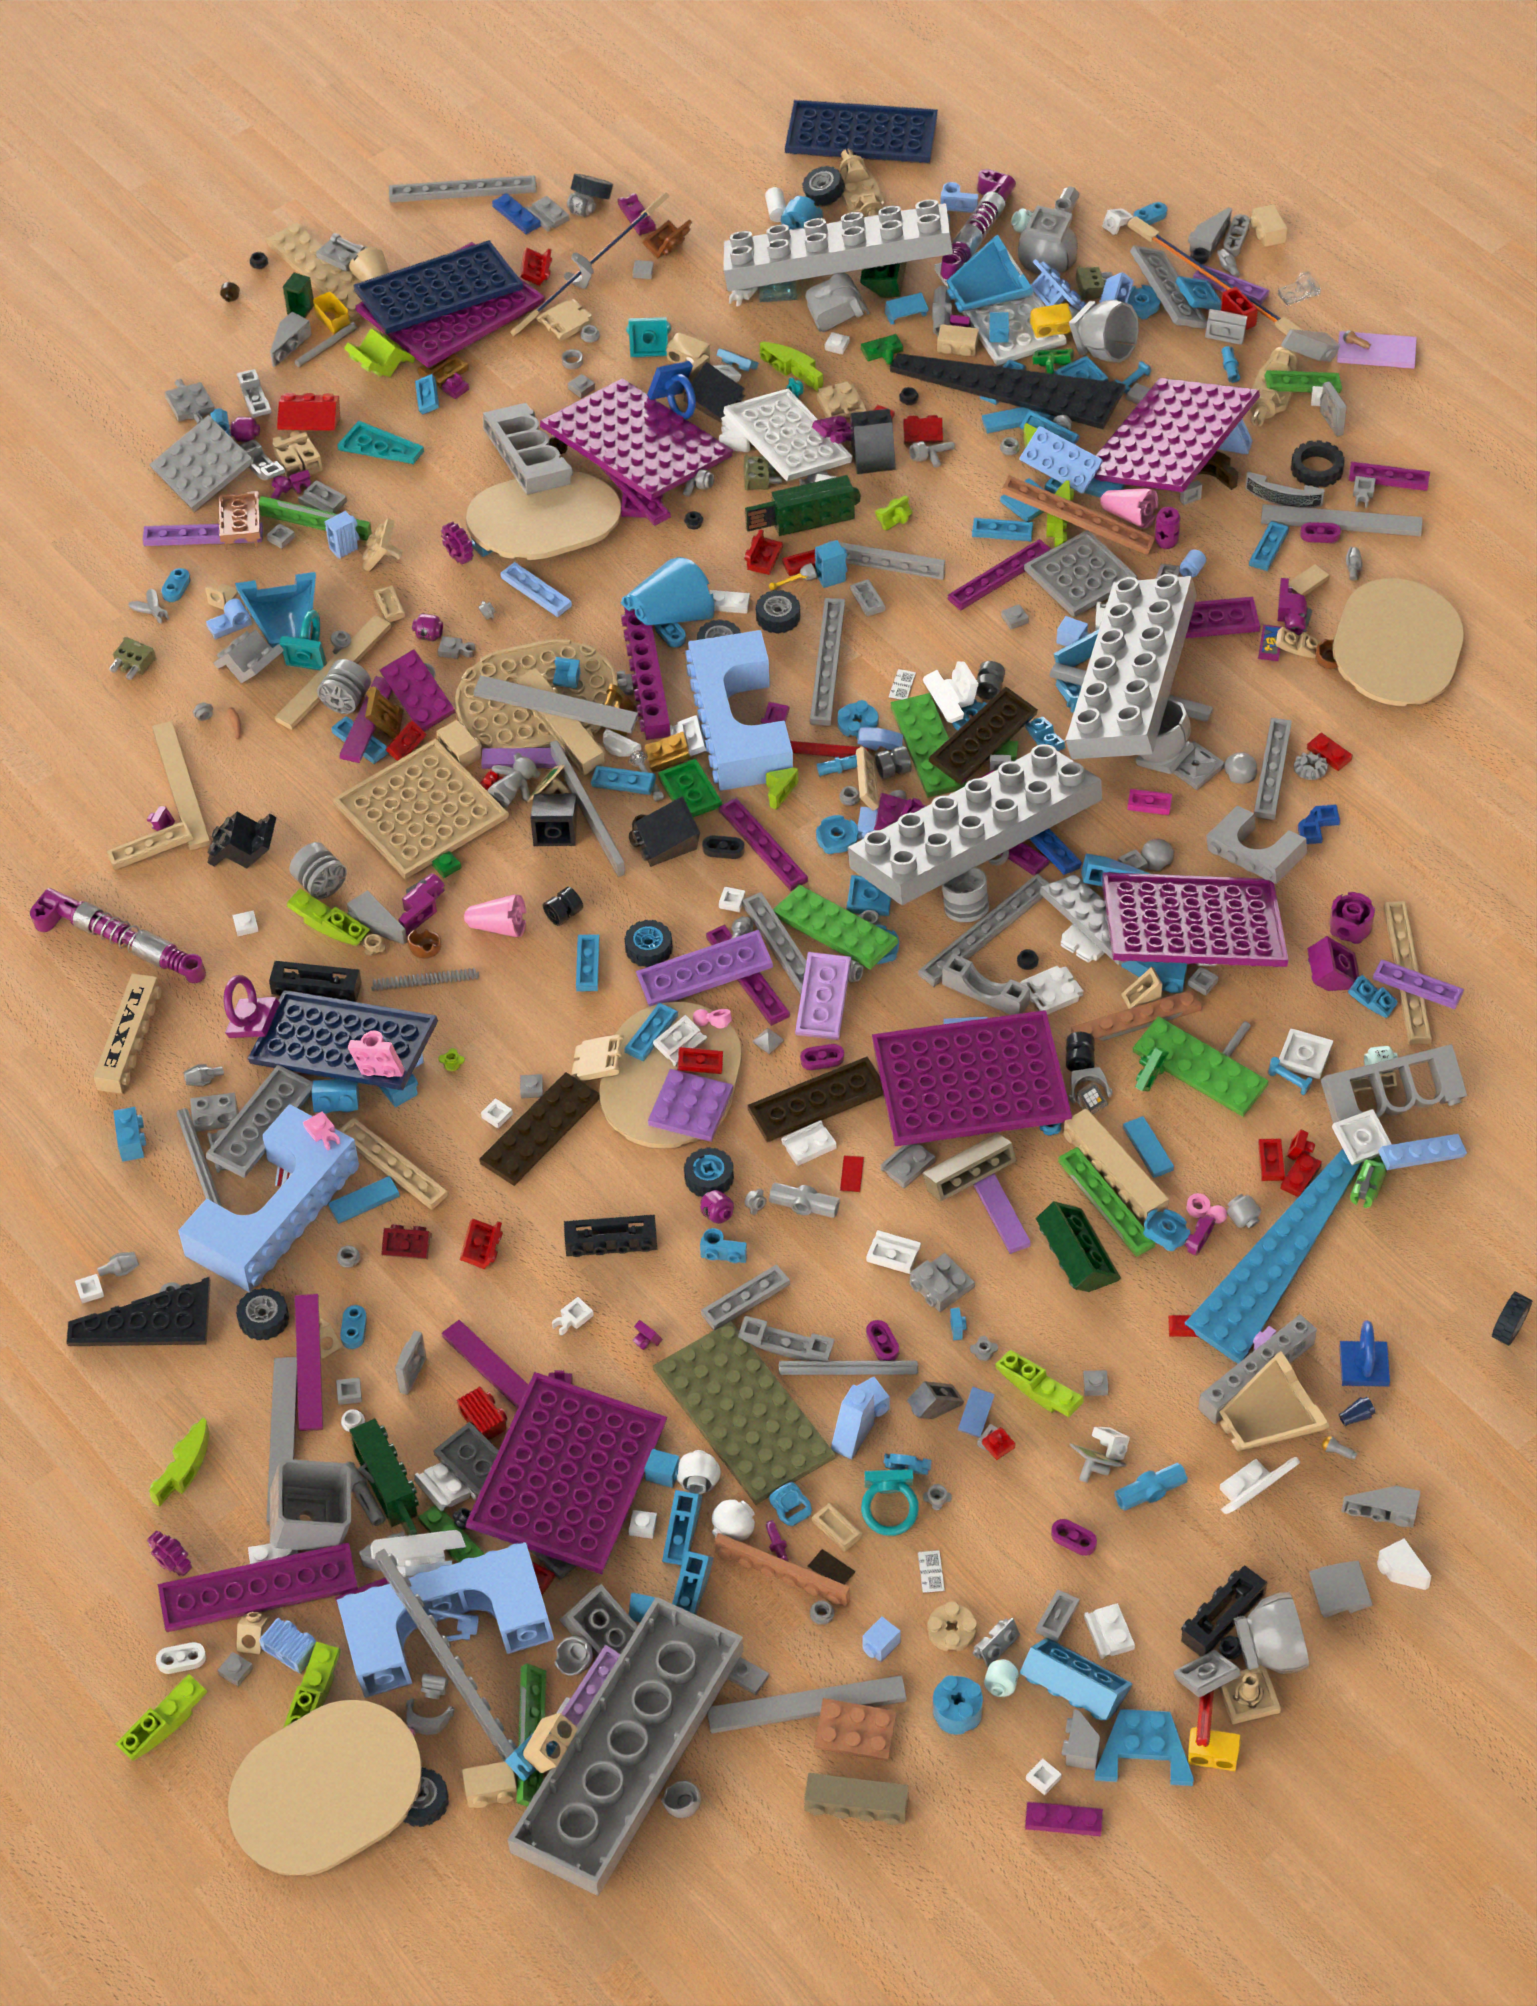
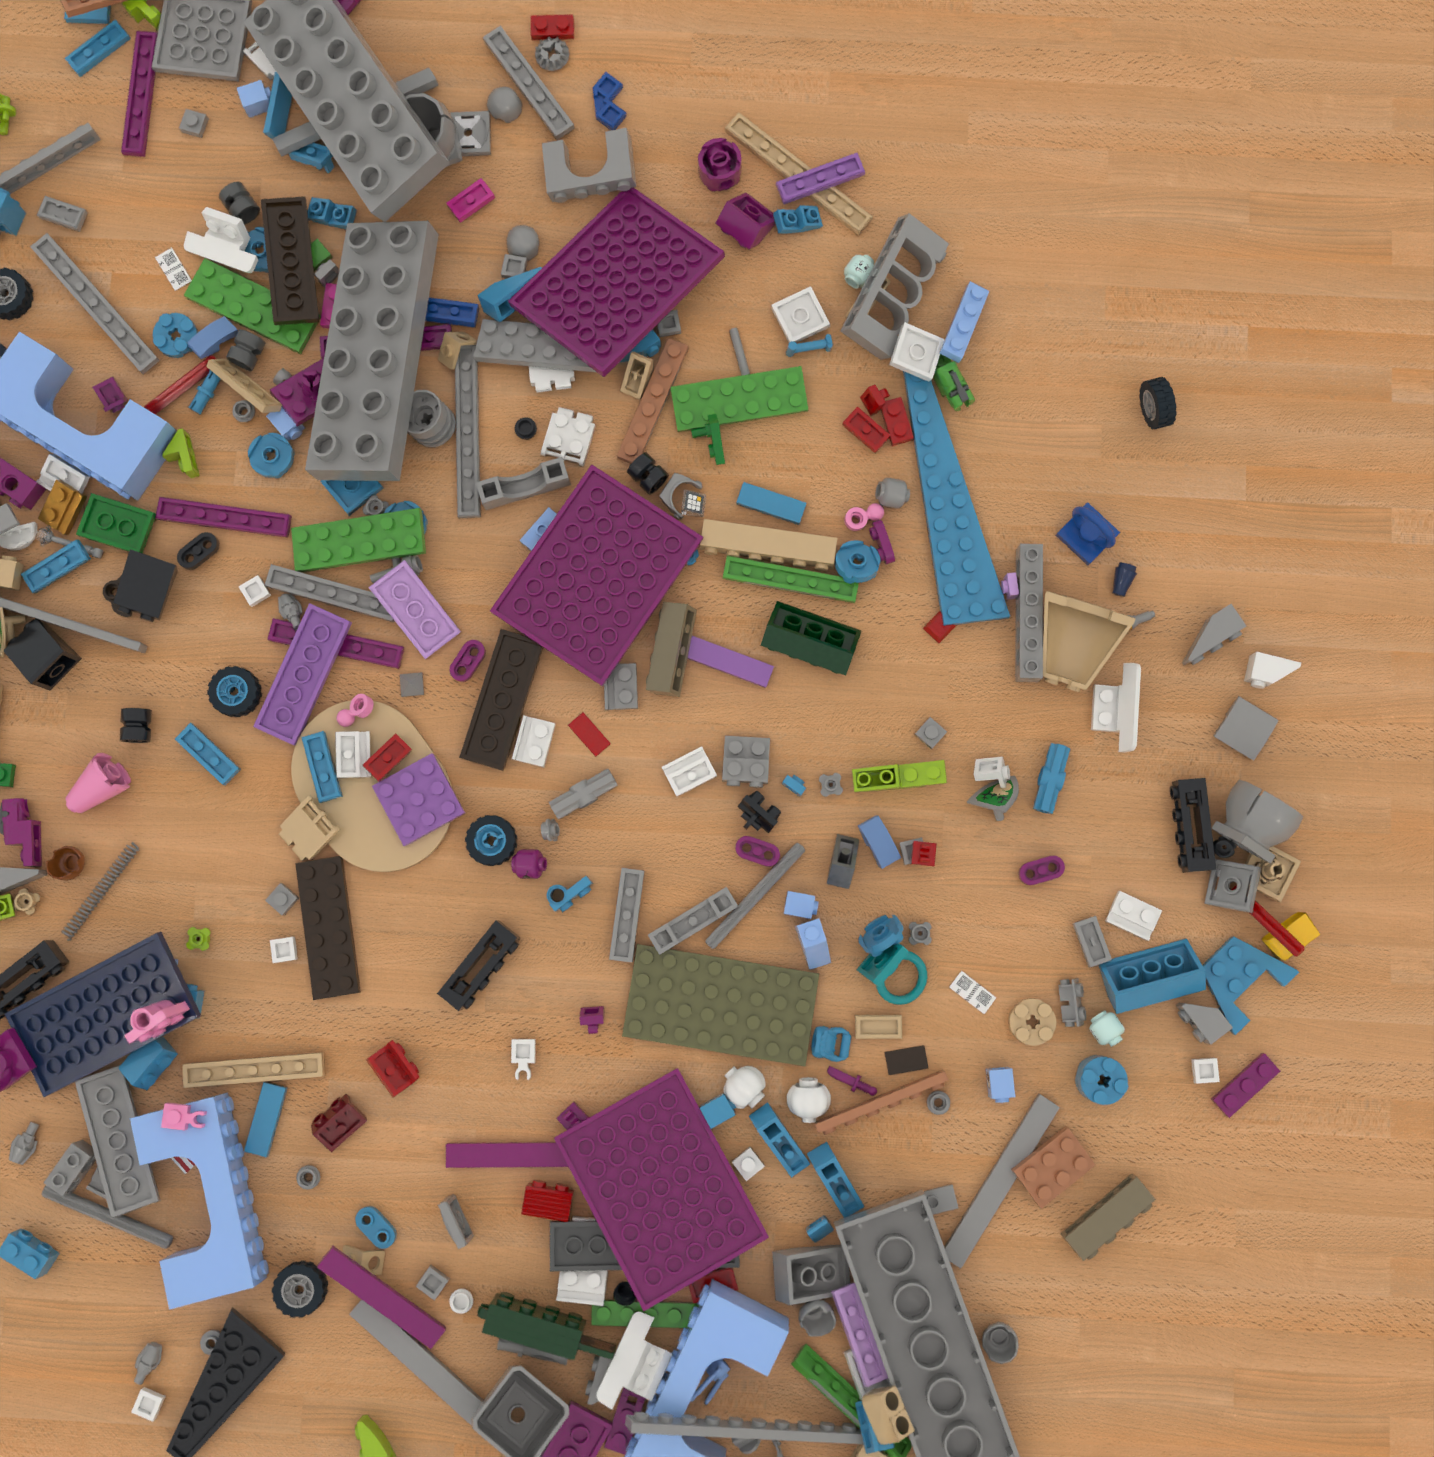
camera: 45 degrees left, 30 degrees up
(907, 1317) = (756, 815): none -> black hips
(1031, 869) = (451, 347): none -> tan bracket

